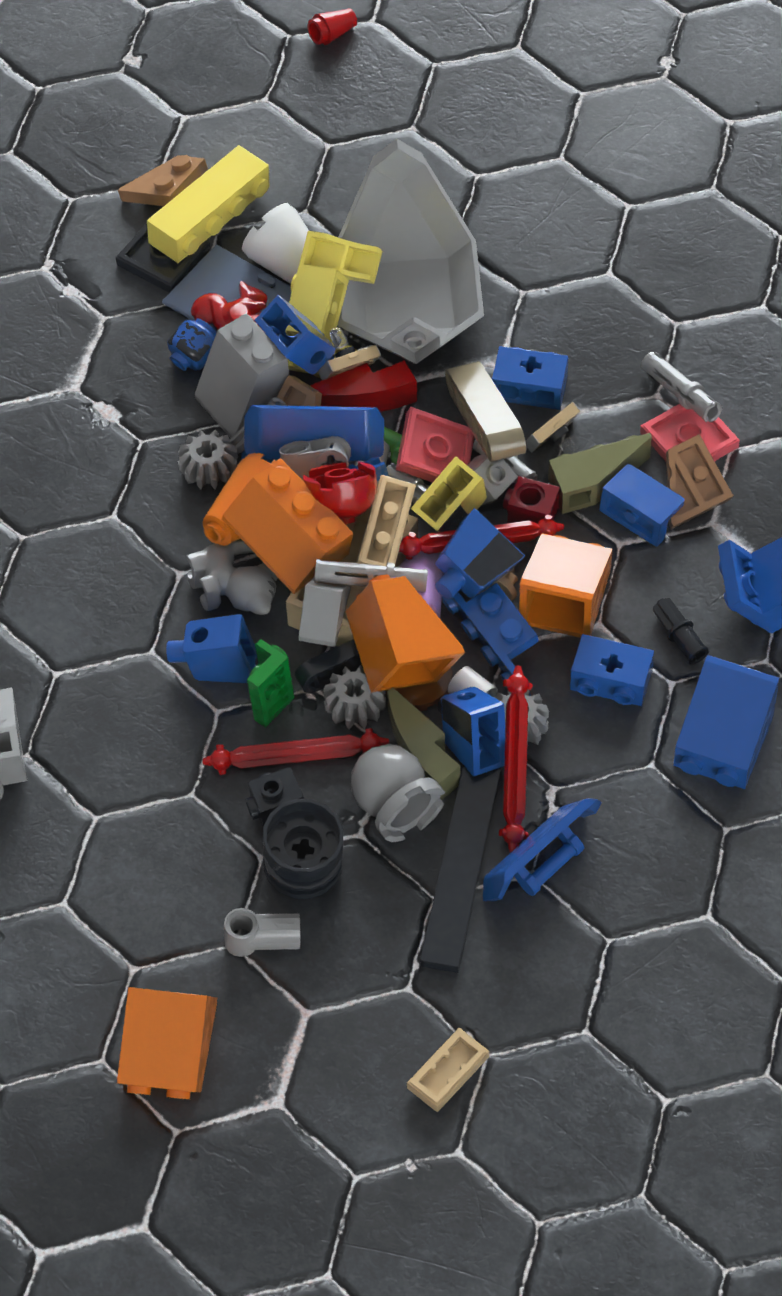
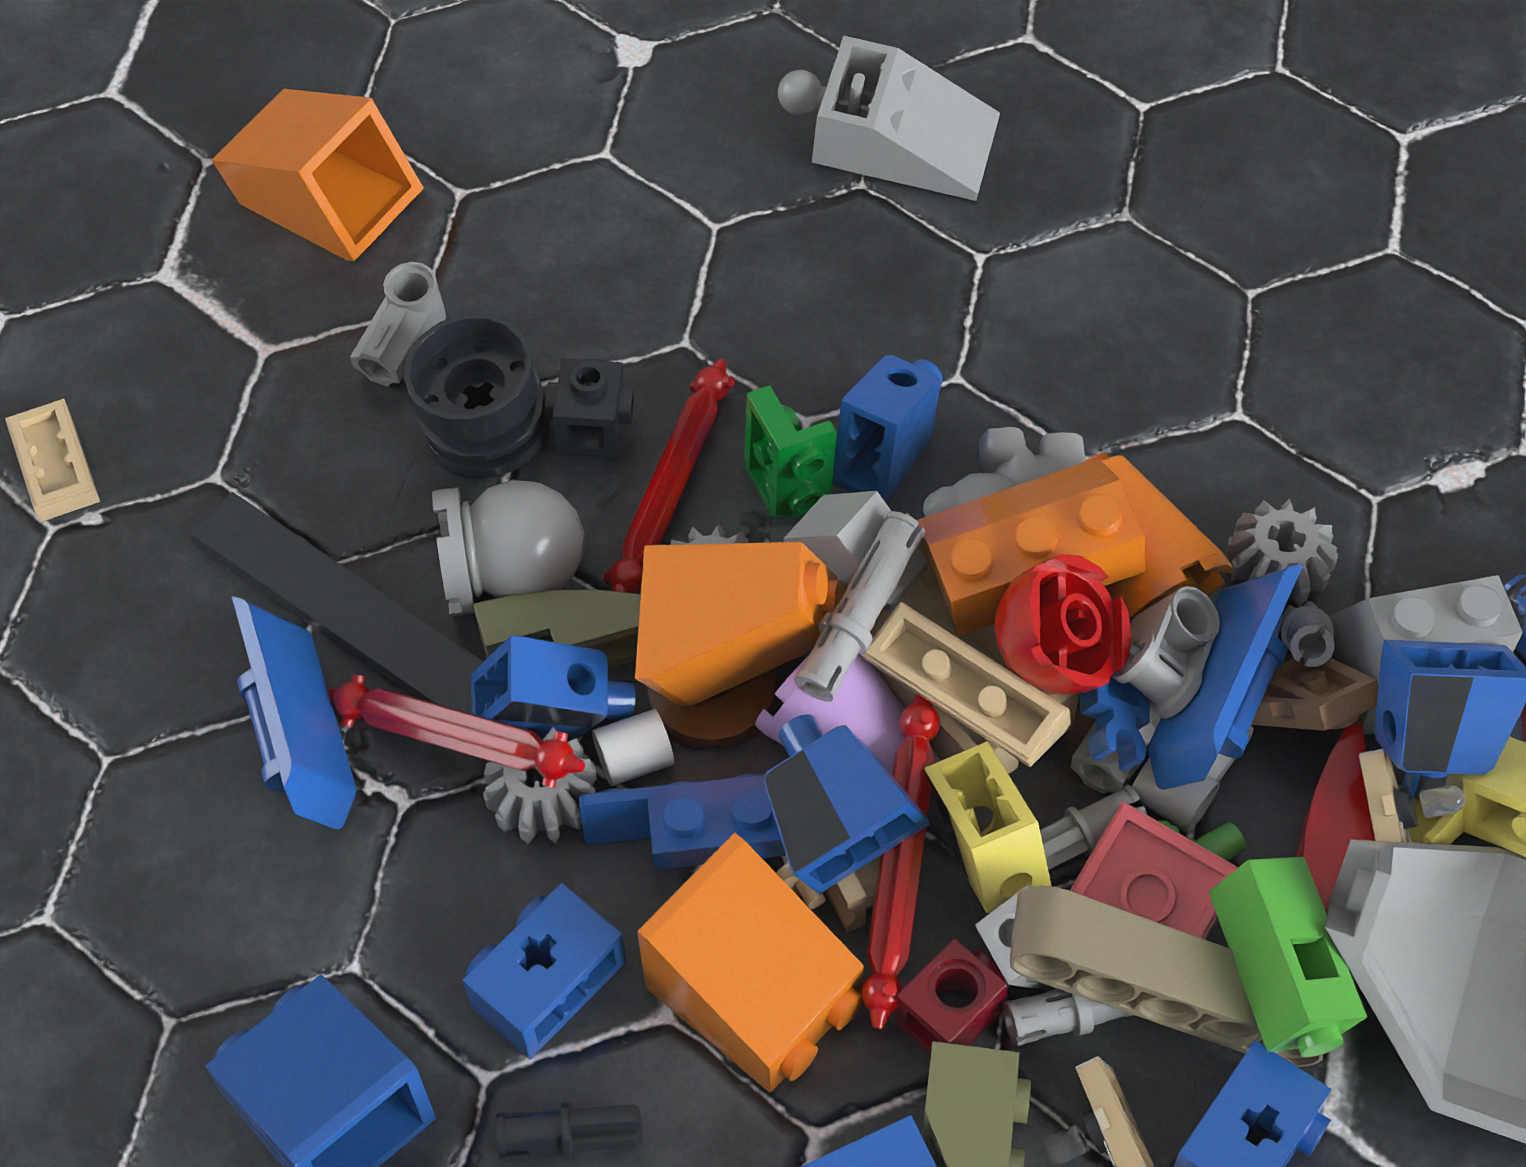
camera: 115 degrees right, 0 degrees up
(453, 367) = (1287, 956): none -> bright green brick

